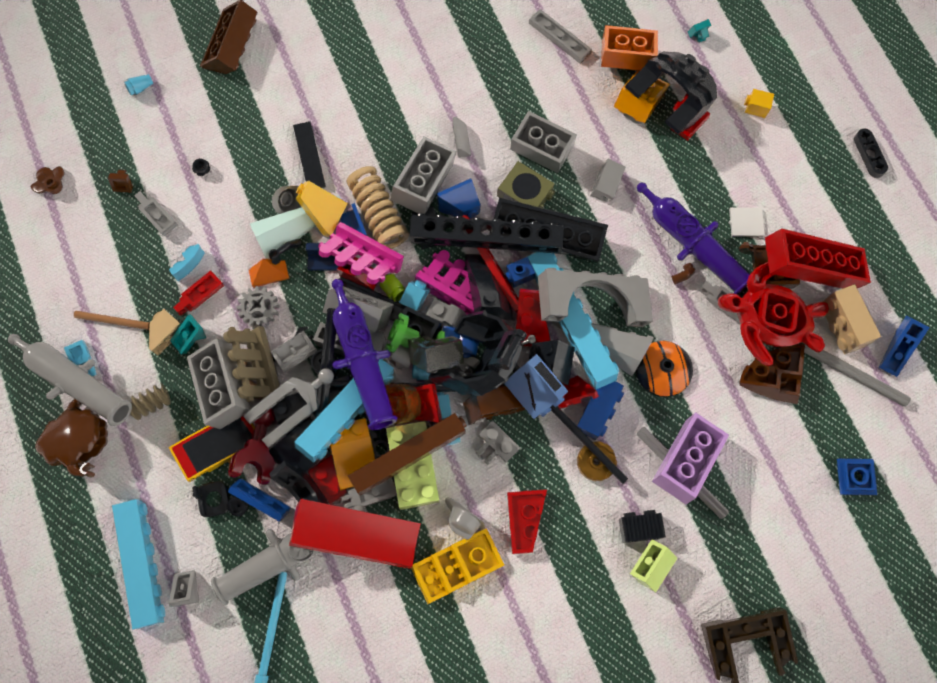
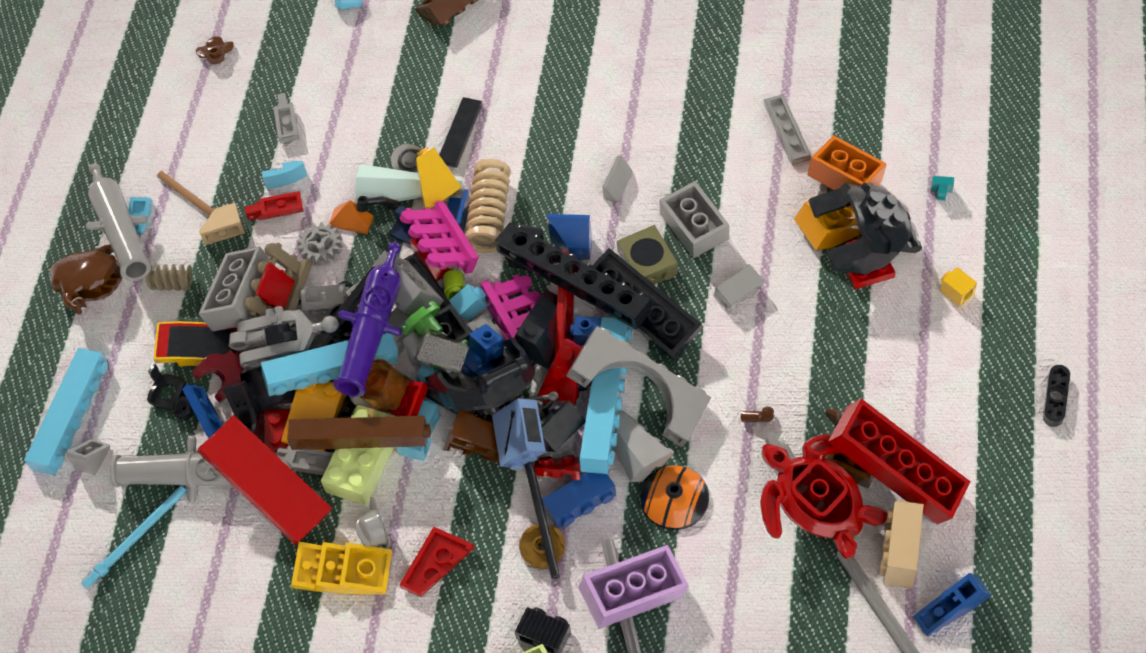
camera: 40 degrees right, 15 degrees down
(120, 181) = (274, 78): reddish brown tile -> none
(187, 335) = (241, 235): teal slope -> none
(197, 164) = (353, 97): black plate -> none
(252, 366) = (275, 286): none -> red piece
(259, 424) = (247, 340): none -> light grey piece
(287, 405) = (278, 332): none -> black piece
(423, 175) = (549, 192): light grey brick -> none
(459, 325) = (486, 343): none -> blue brick
(498, 441) = (460, 480): light grey hinge -> none
(696, 239) = (789, 381): dark purple piece -> none
(746, 222) = (868, 392): white piece -> none
(779, 380) = (789, 562): reddish brown brick -> none

